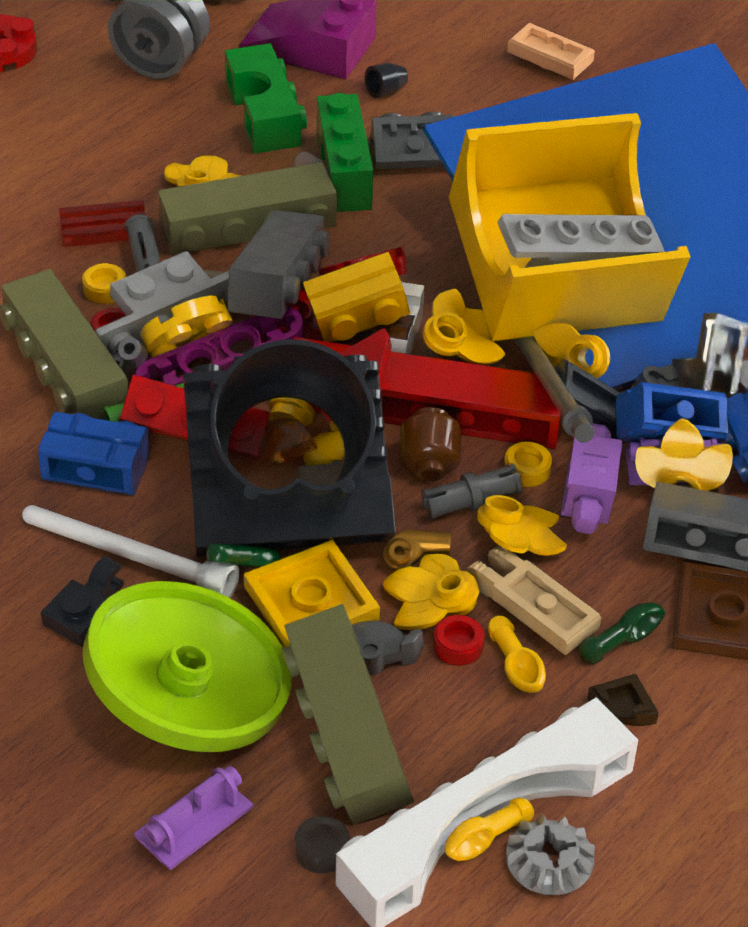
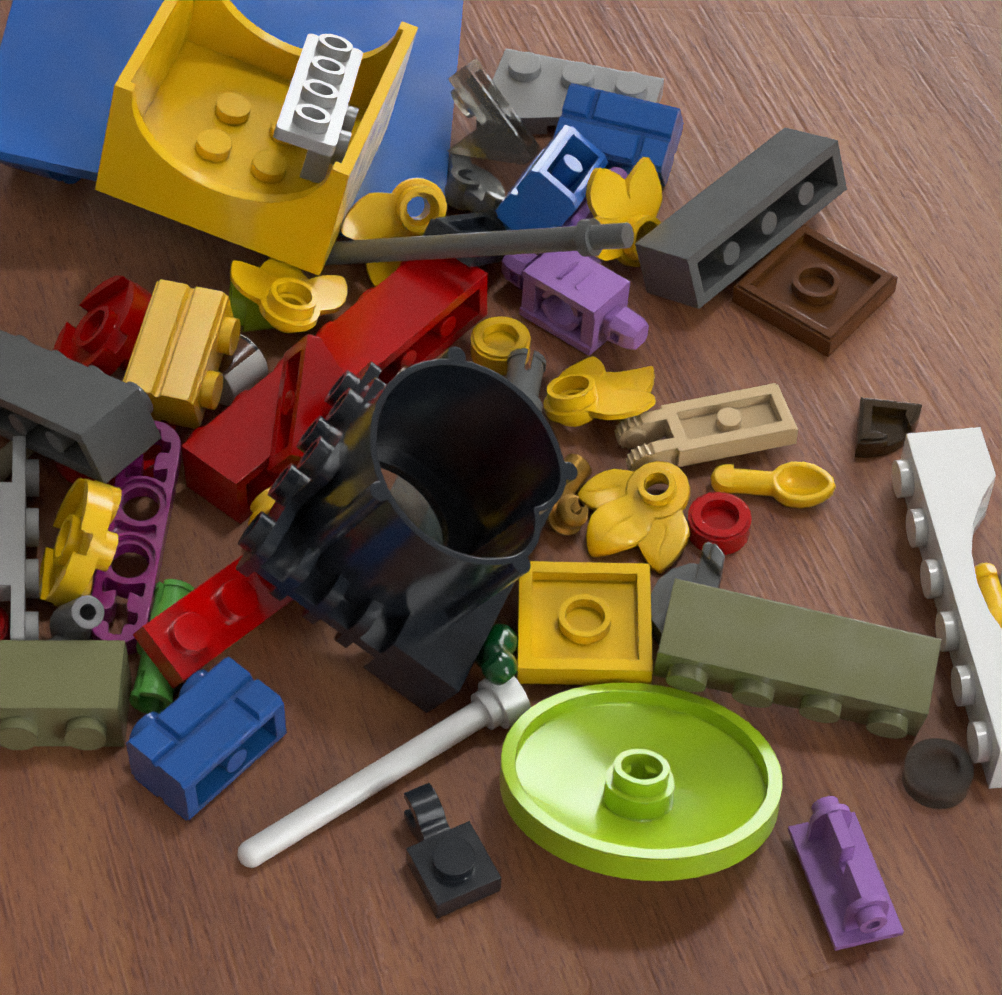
camera: 60 degrees left, 5 degrees up
(632, 627) = (793, 378): dark green piece -> none

